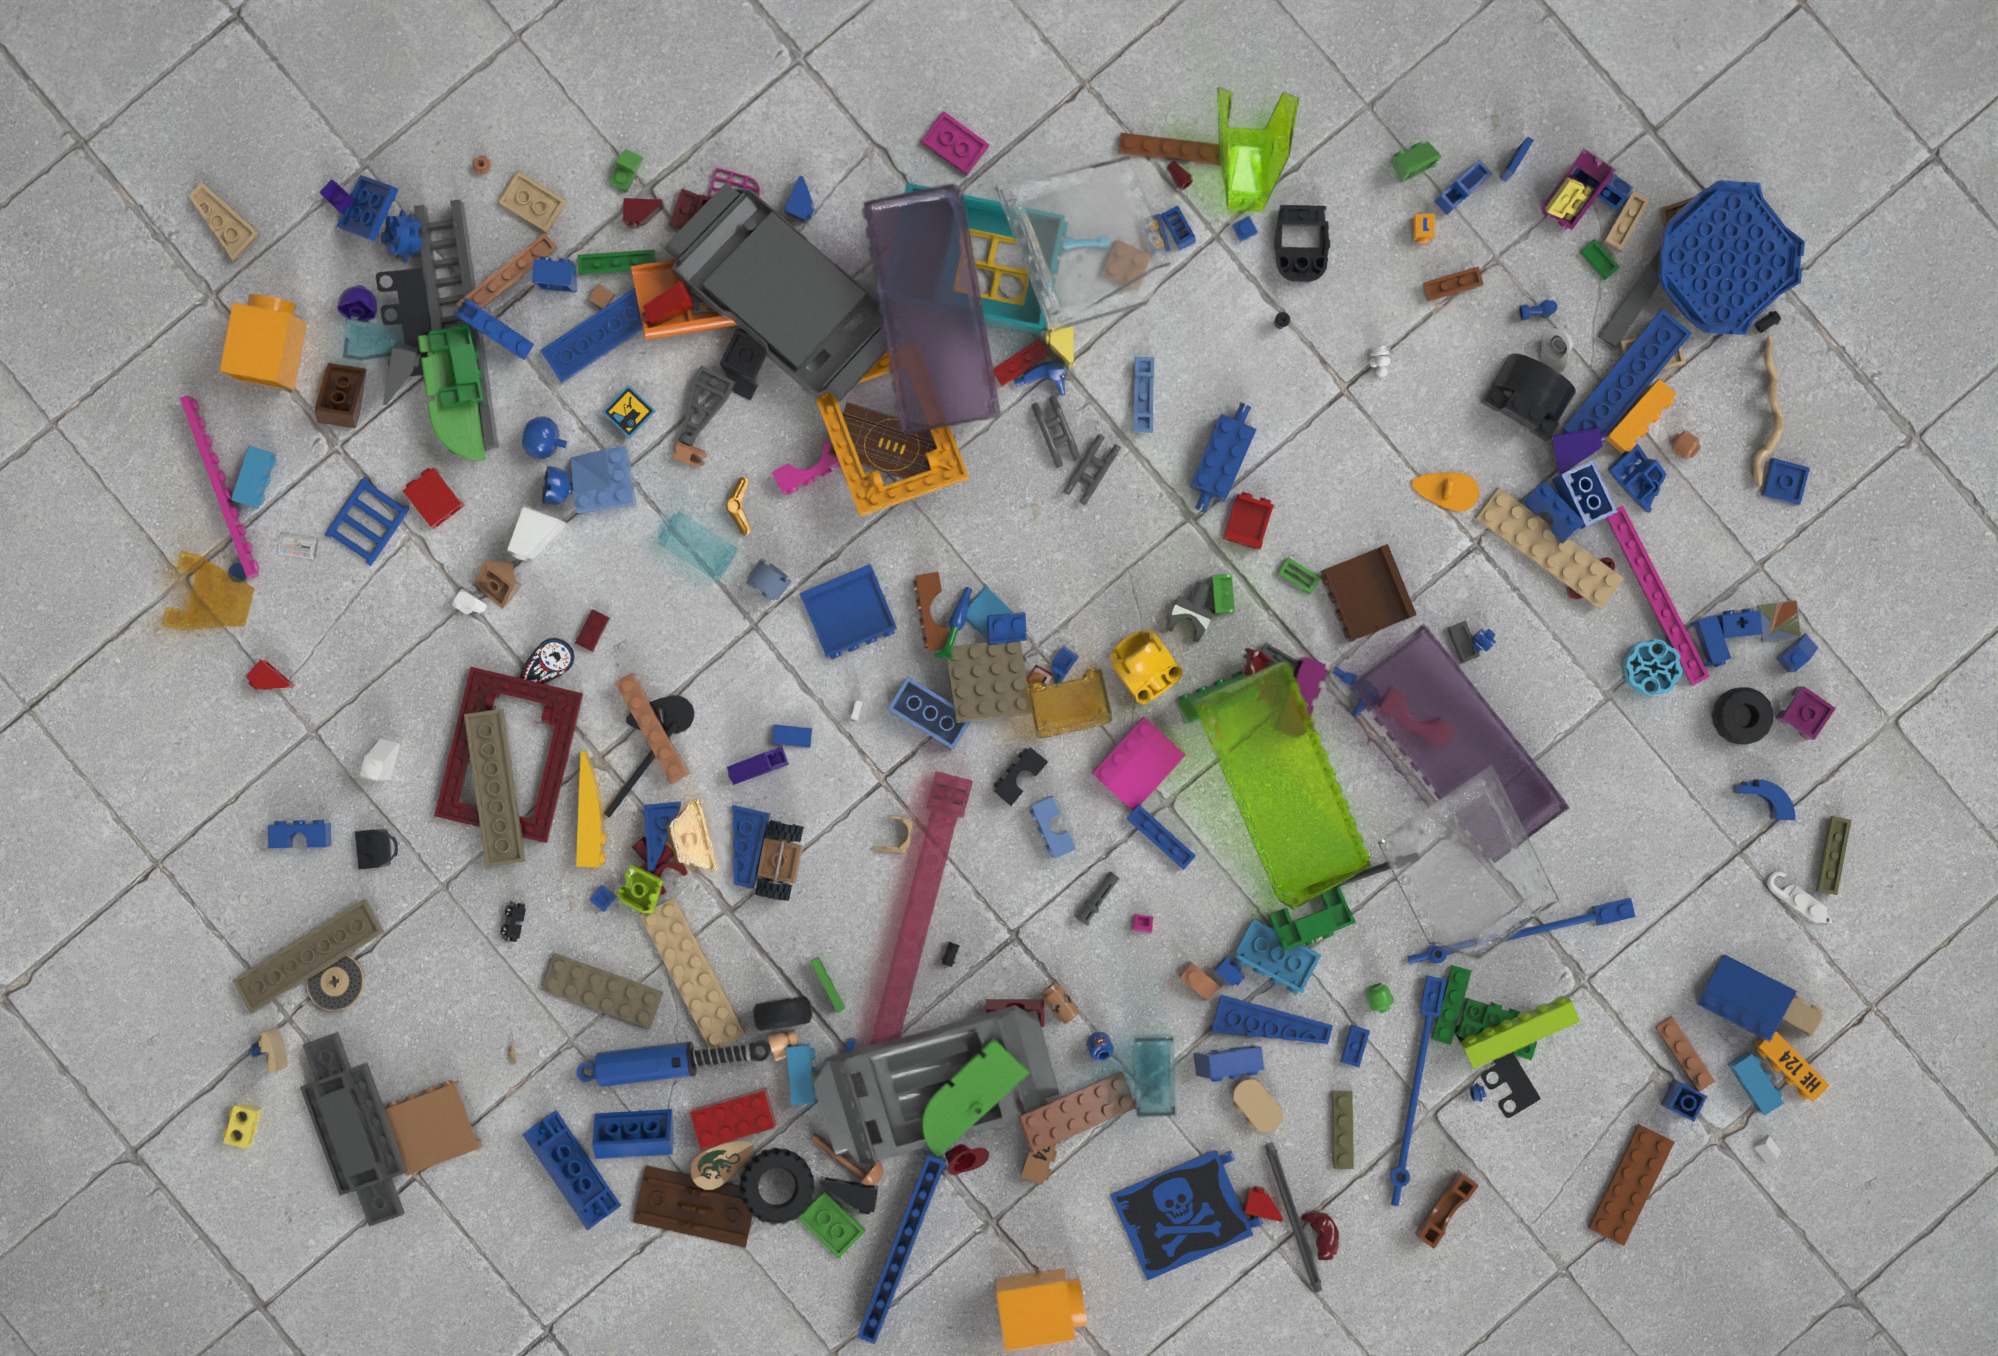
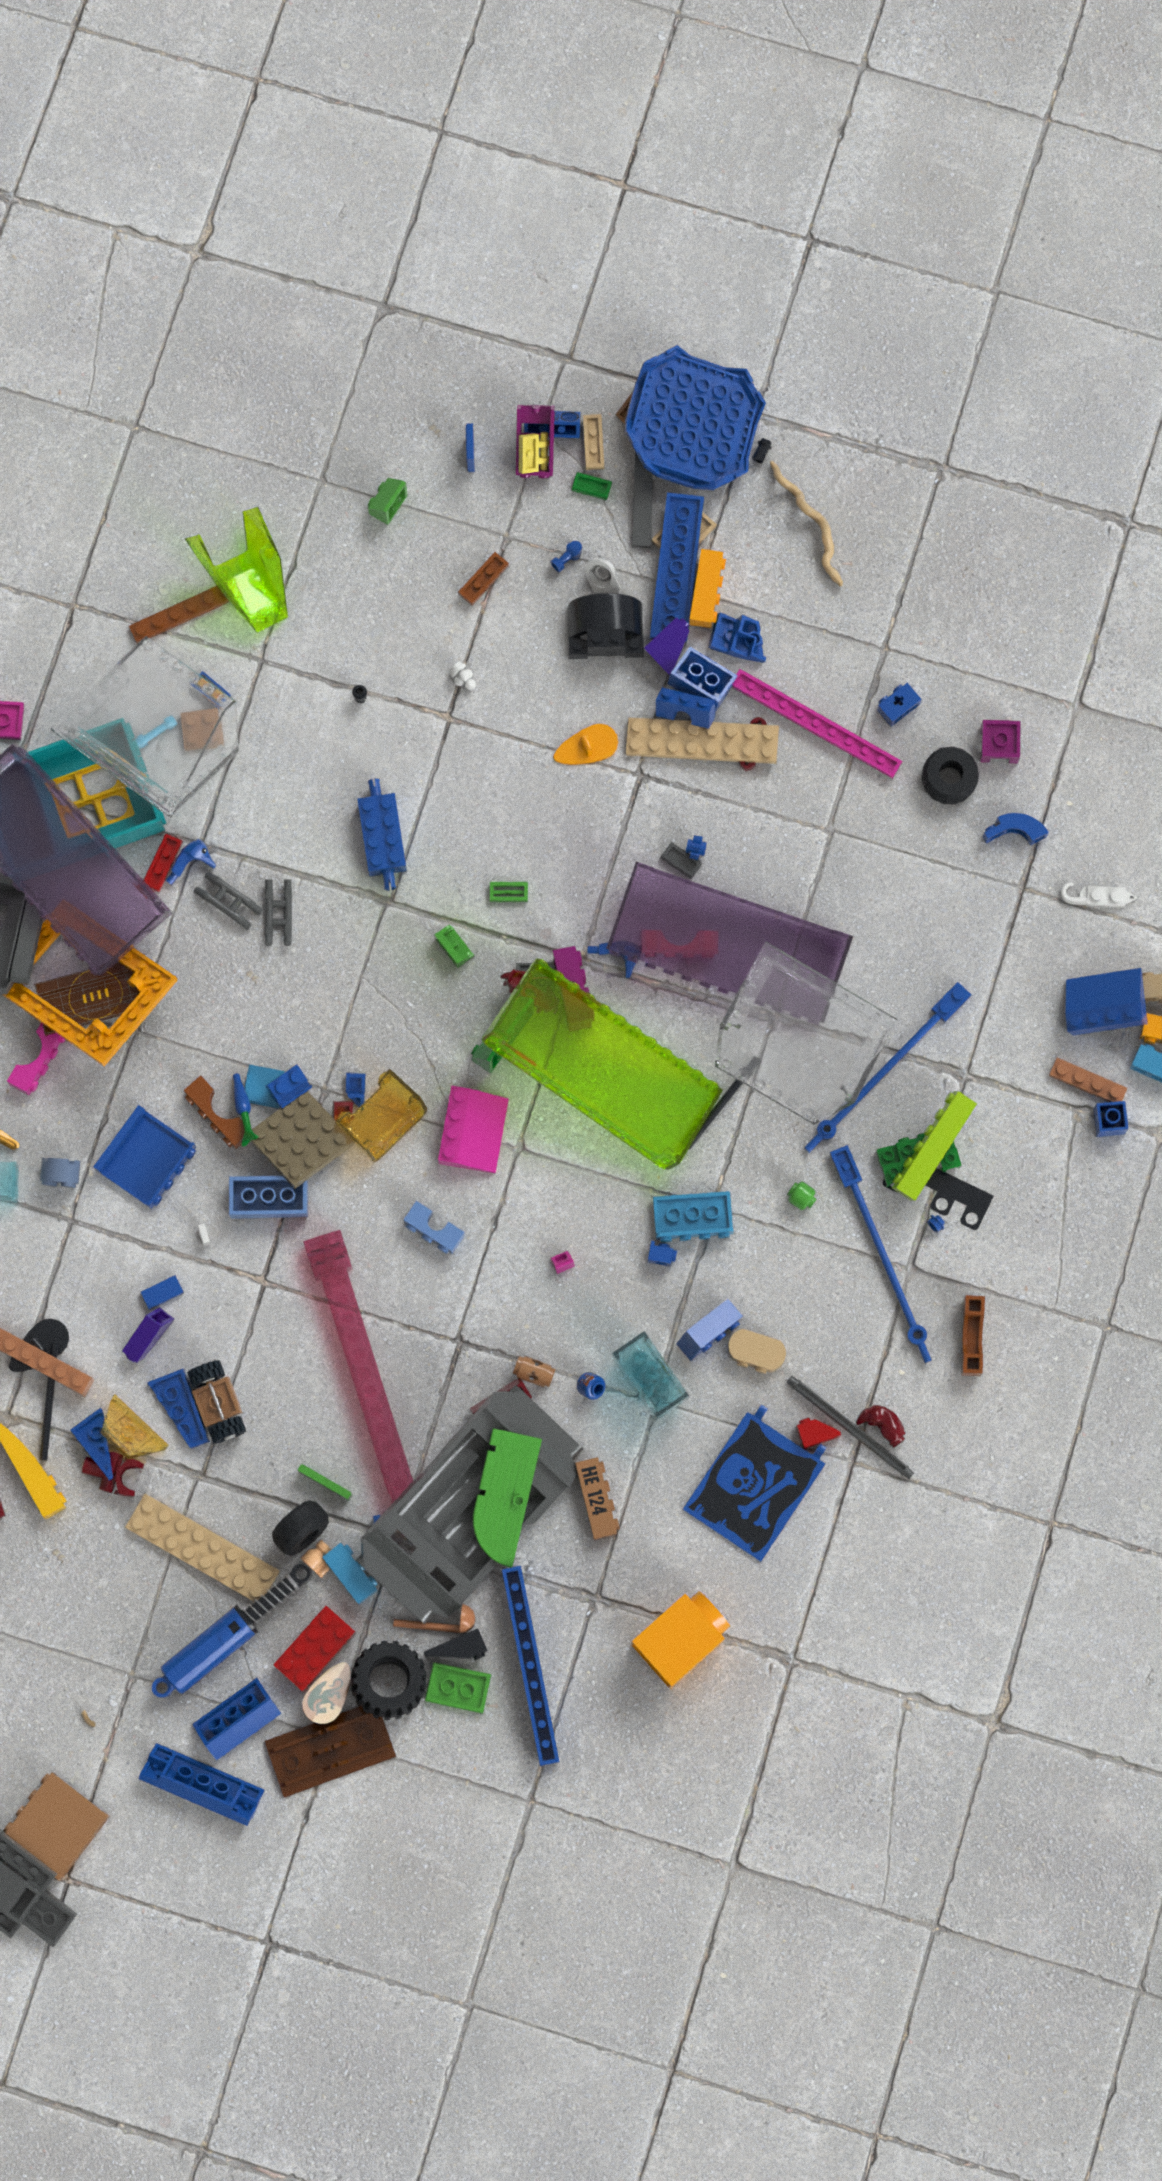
camera: 30 degrees left, 10 degrees down
(510, 928) = (18, 1609): black hinge -> none
(602, 990) = (132, 1613): dark tan plate -> none
(603, 898) = (84, 1532): blue plate -> none
(640, 889) = (111, 1501): lime slope -> none
(901, 847) = (308, 1304): tan helmet -> none
(950, 954) = (414, 1390): black pin -> none
(965, 1159) = (538, 1555): dark red piece -> none
(1007, 787) = (379, 1185): black arch -> none
(1062, 344) = (187, 825): light yellow slope -> none
(1076, 1112) = (606, 1452): dark orange plate -> none
(1091, 907) = (509, 1273): dark grey pin -> none
(1143, 394) = (282, 824): medium blue slope -> none
(1144, 665) = (425, 1043): yellow piece -> none
(1161, 837) = (531, 1178): blue plate -> none
(1179, 175) = (200, 630): dark red cone -> none
(1187, 237) = (237, 677): blue slope -> none
(1193, 609) = (437, 974): dark grey connector -> none
(1199, 981) = (641, 1278): nougat slope -> none
(1244, 229) = (282, 640): blue plate -> none
(1248, 521) = (437, 873): red panel -> none
(1253, 1020) = (710, 1281): blue wing -> none
(1302, 263) = (348, 637): black slope -> none
(1316, 925) = (706, 1170): green bracket -> none
(1343, 1129) = (844, 1327): olive plate -> none
(1354, 1046) = (807, 1249): blue plate -> none
(1368, 593) = (575, 870): reddish brown panel -> none
(1423, 228) = (429, 548): light orange brick -> none
(1451, 1004) = (866, 1164): green plate -> none
(1463, 187) = (441, 497): blue slope -> none
(1631, 1184) = (1115, 1218): dark orange plate -> none
(1644, 650) = (838, 781): medium azure connector -> none
(1685, 444) = (759, 588): nougat head -> none
(1712, 640) = (885, 731): blue brick -> none
(1779, 621) = (930, 681): tile -> none
(1785, 481) = (861, 567): blue tile -> none
(1797, 654) = (962, 698): blue slope -> none
(1833, 855) = (1101, 842): olive plate -> none

